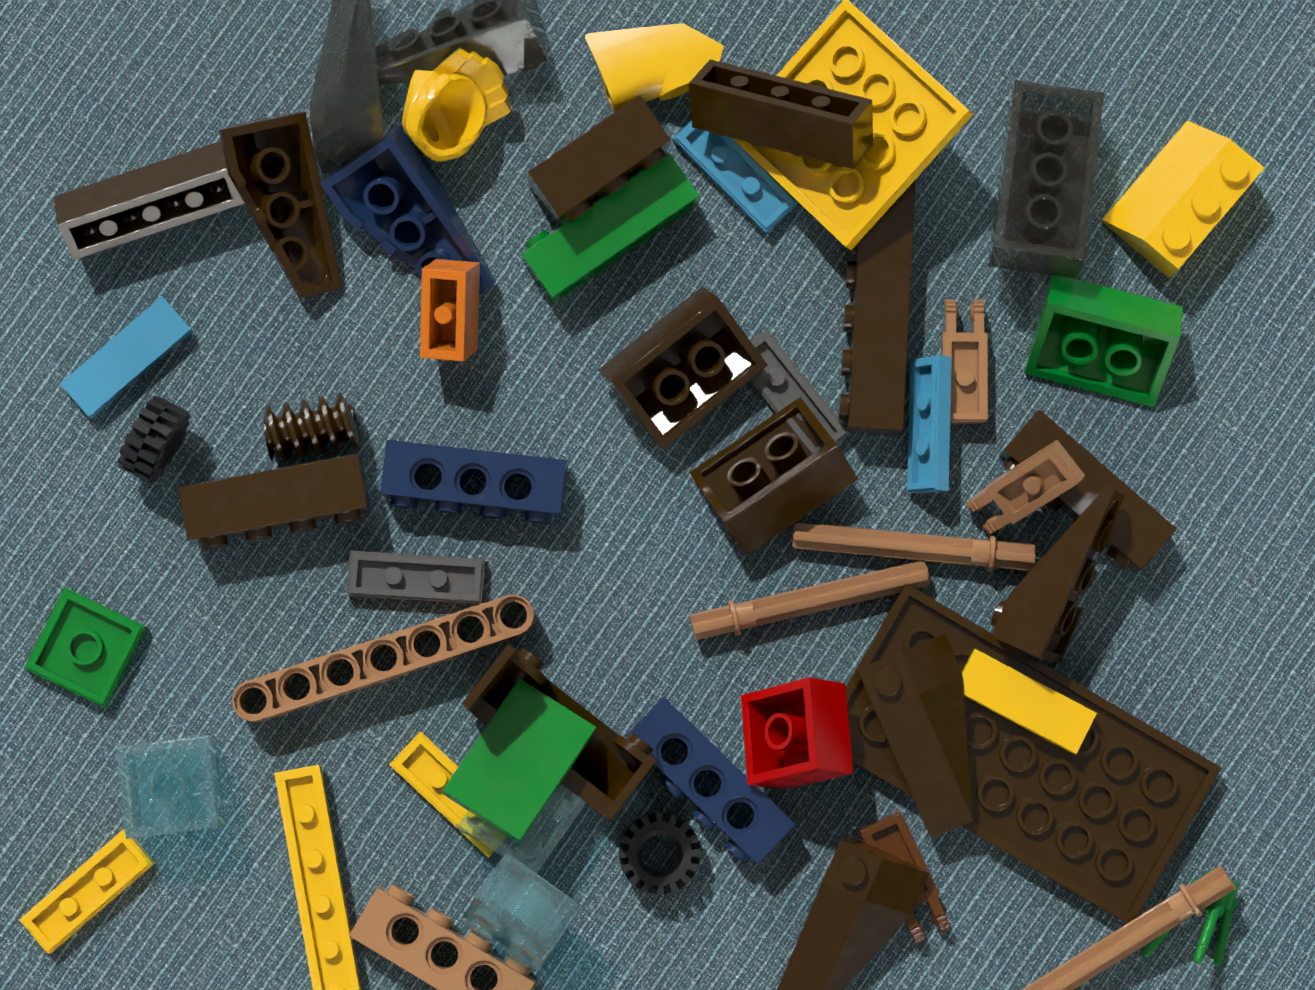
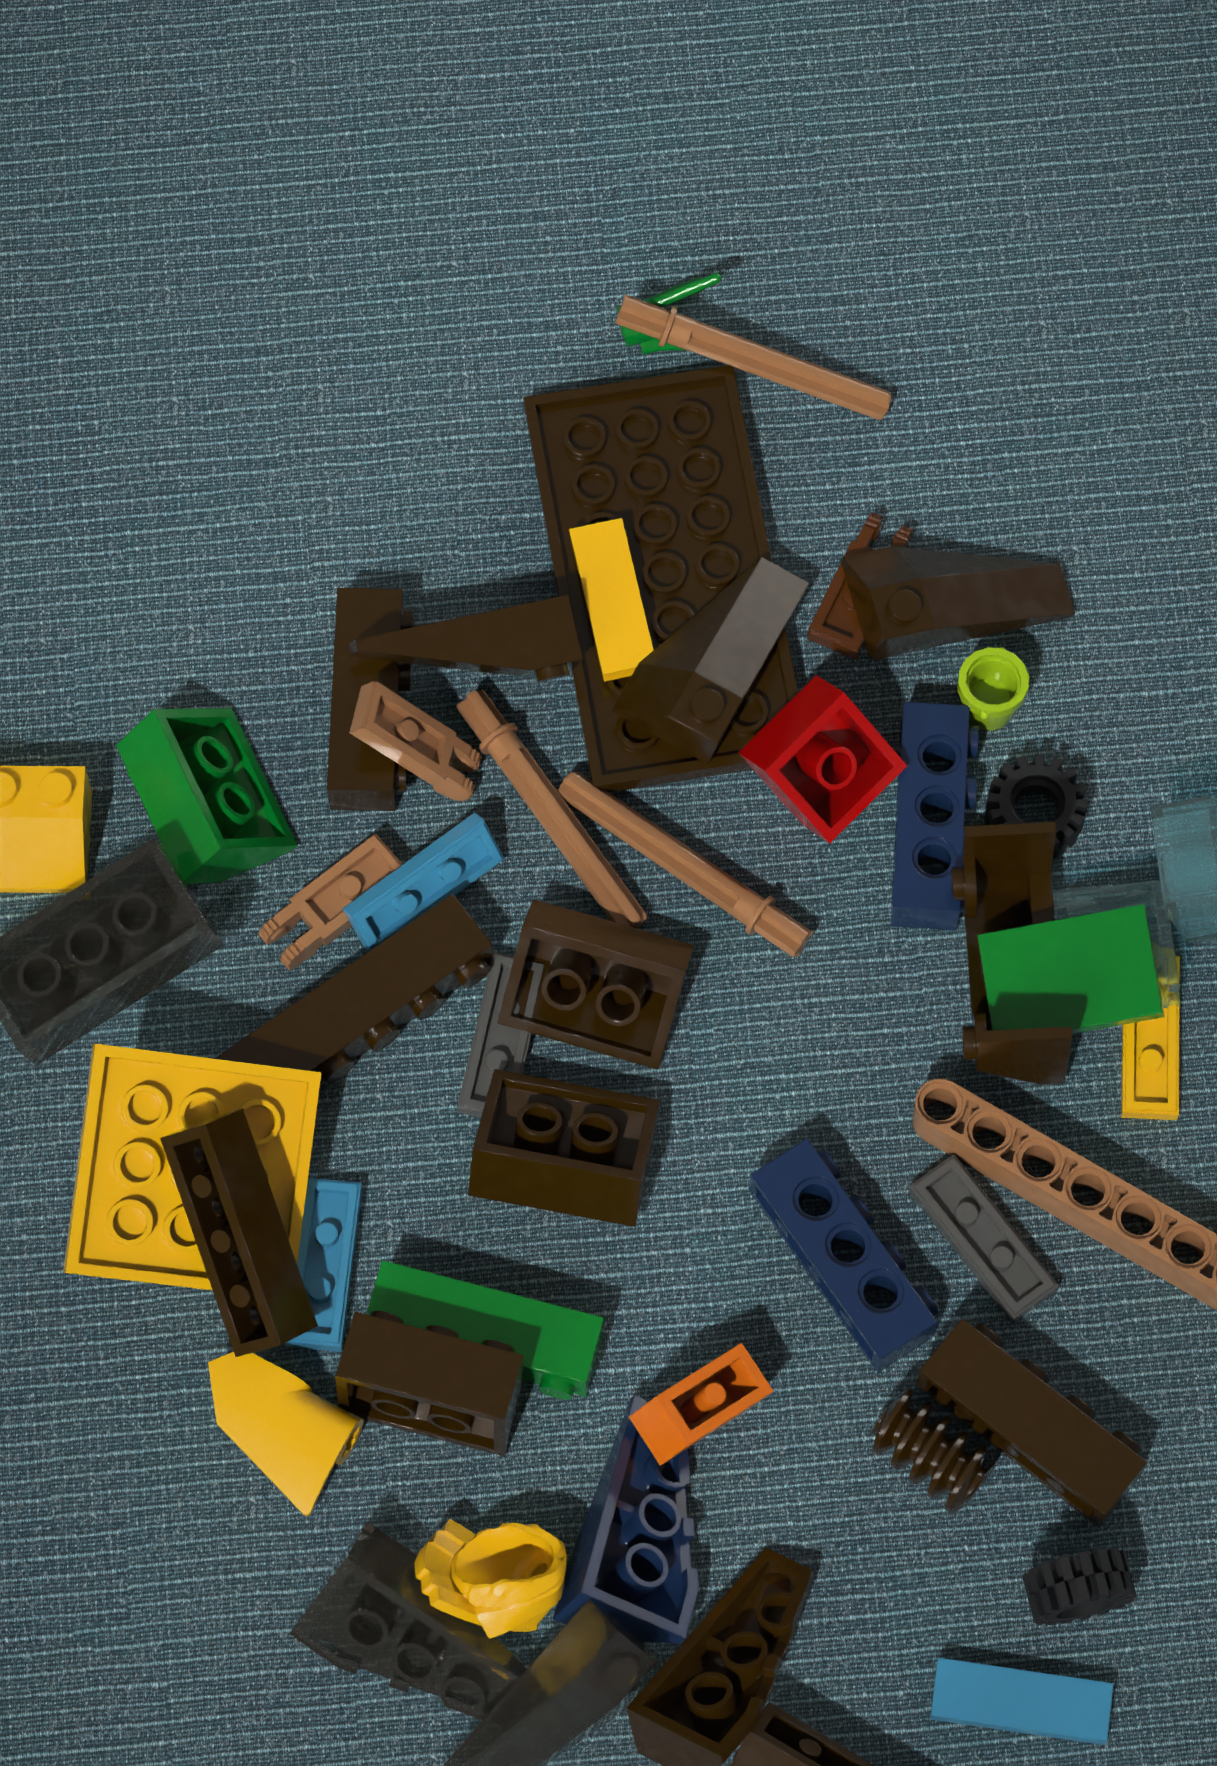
camera: 130 degrees left, 15 degrees down
(759, 892) = (992, 687): none -> lime piece

